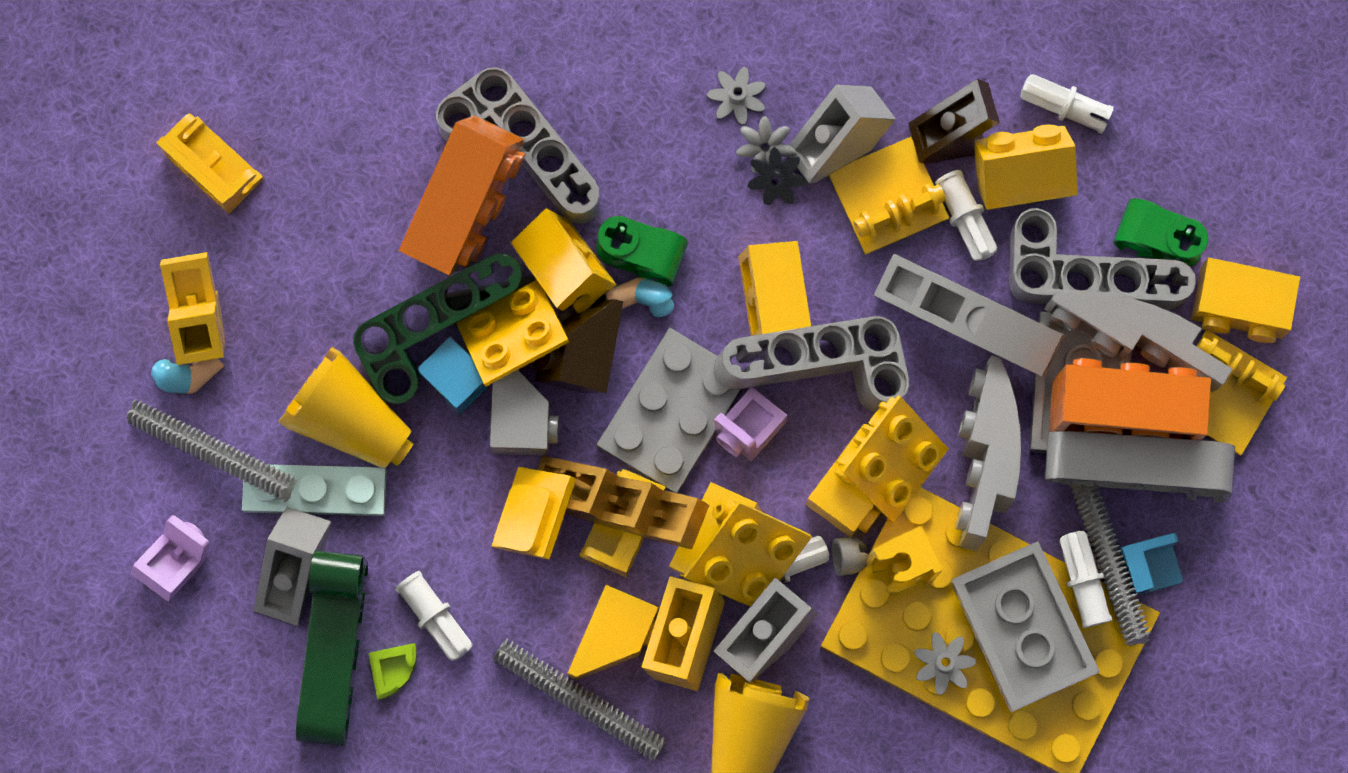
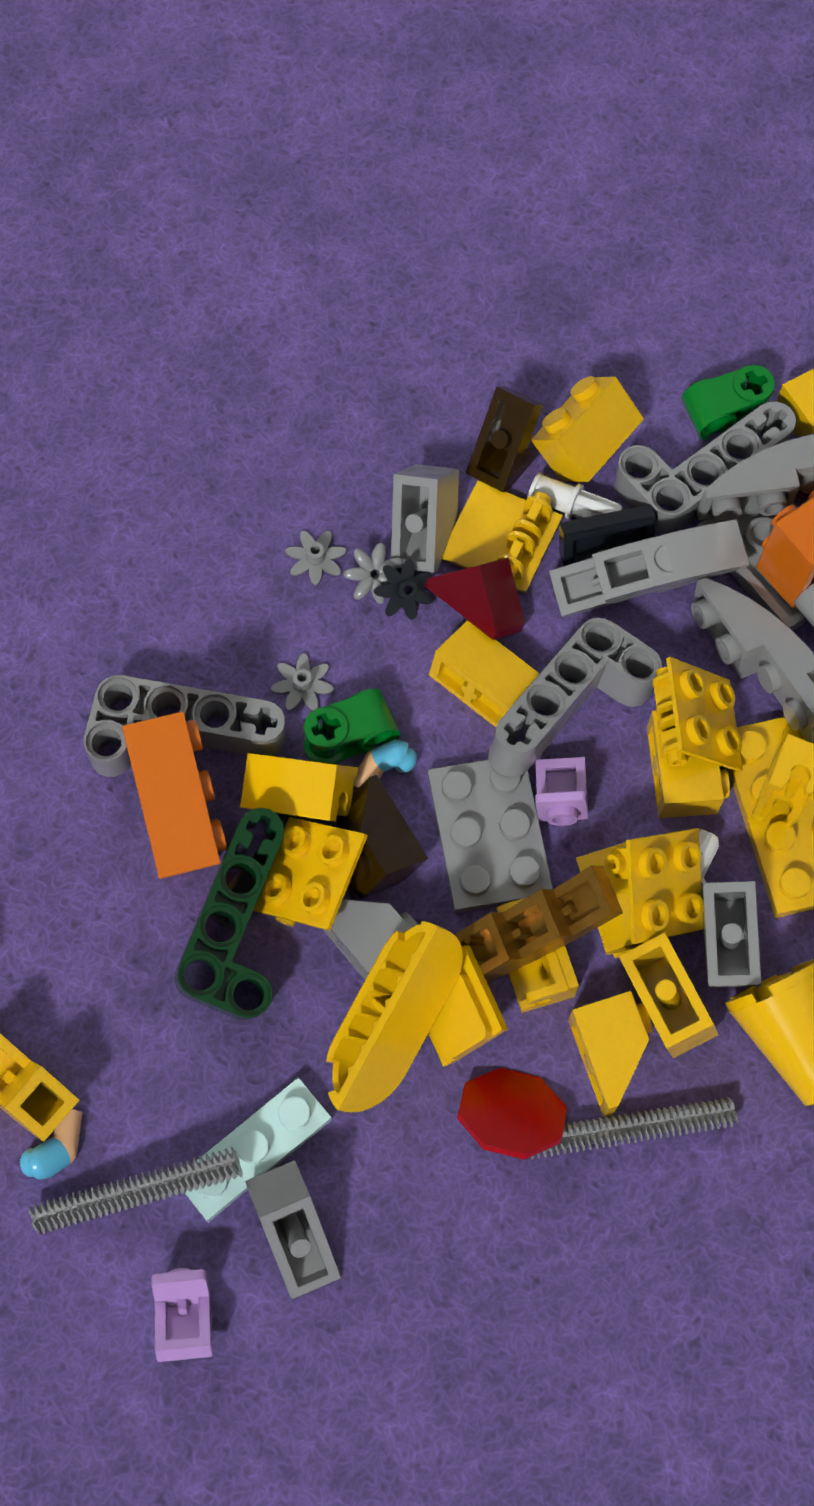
camera: 40 degrees left, 10 degrees down
(331, 647) = (392, 1268): dark green beam -> none
(347, 414) = (227, 1058): yellow cone -> none
(392, 668) = (454, 1241): lime tile -> none
(434, 616) = (451, 1165): white axle -> none
(453, 375) = (290, 949): dark azure panel -> none
(480, 482) = (392, 1015): none -> yellow brick
(504, 618) = (512, 1113): none -> red piece
(641, 193) = (302, 690): none -> light grey plant
(823, 232) = (483, 596): none -> dark red slope
(848, 555) = (735, 823): light grey hinge -> none
(963, 262) = (605, 531): none -> black tile
(1065, 102) = (569, 366): white axle -> none

